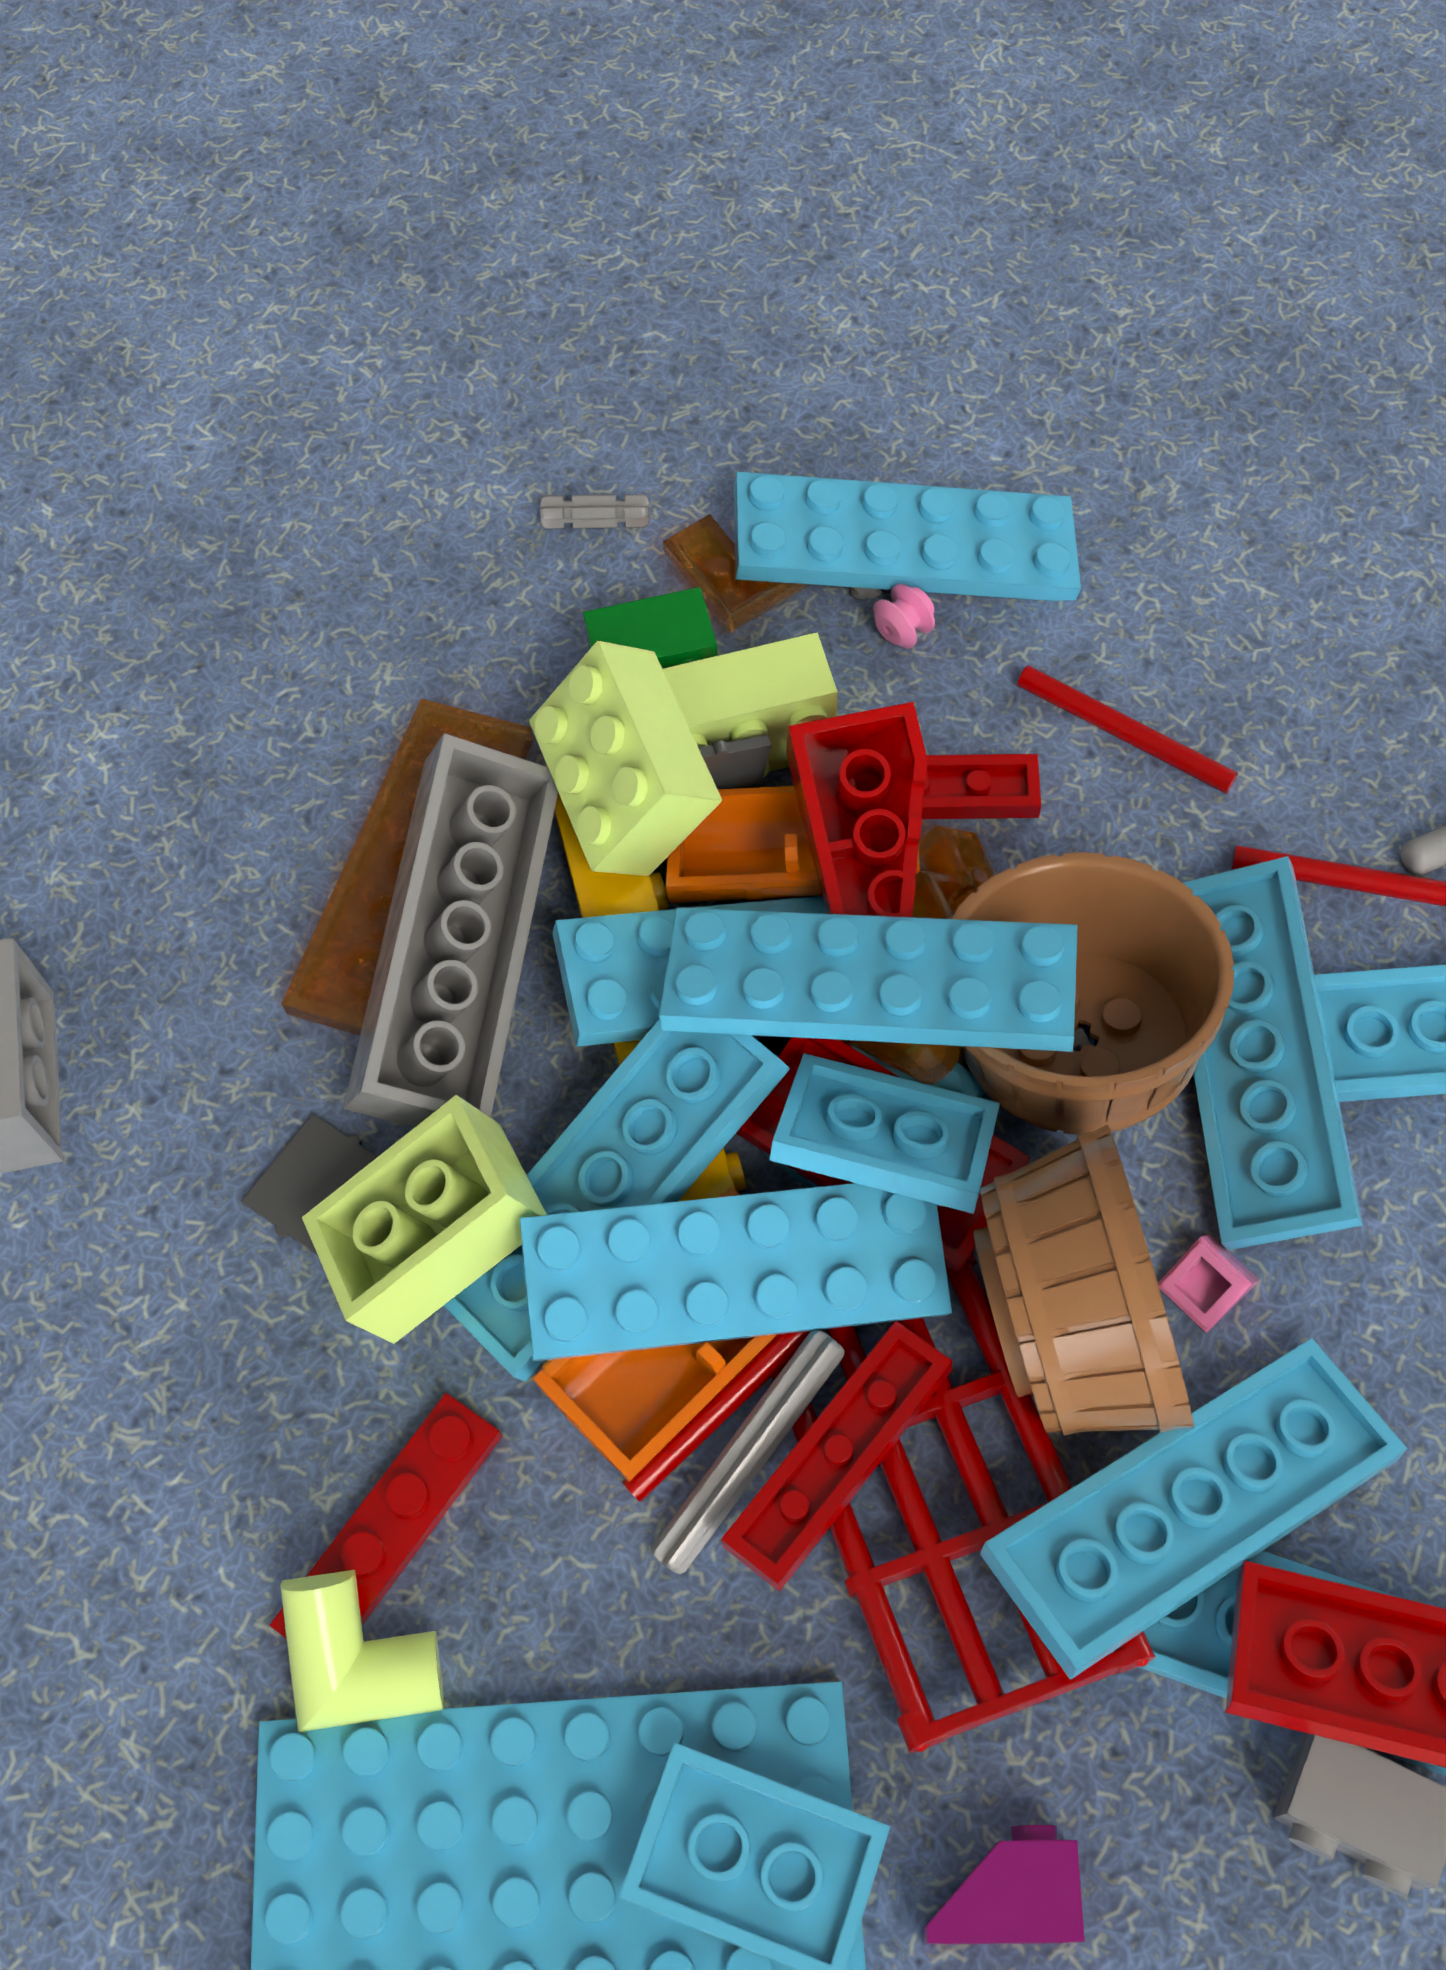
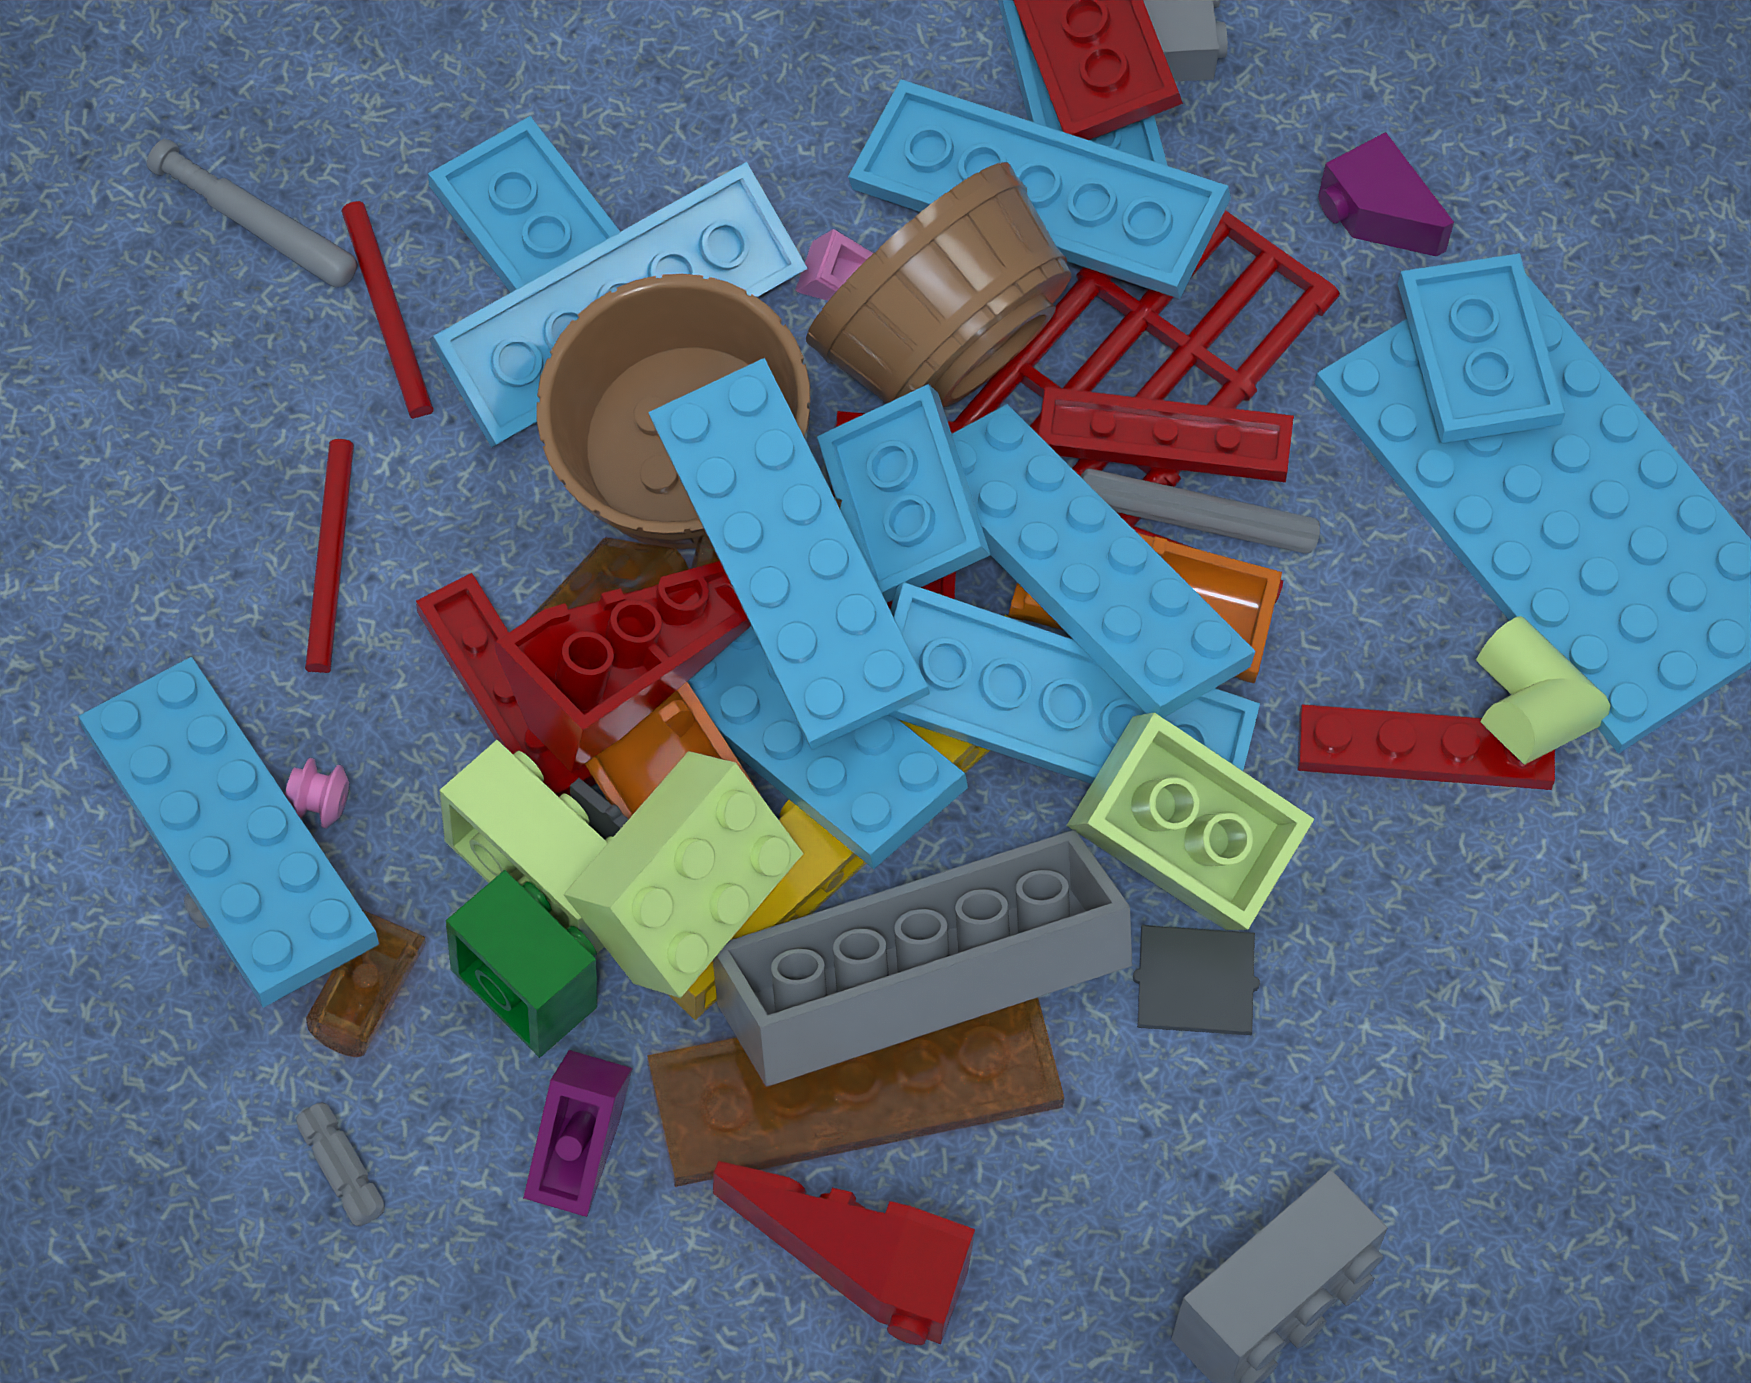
camera: 130 degrees left, 0 degrees up
(262, 795) = (891, 1264): none -> red wedge
(511, 659) = (576, 1132): none -> magenta slope

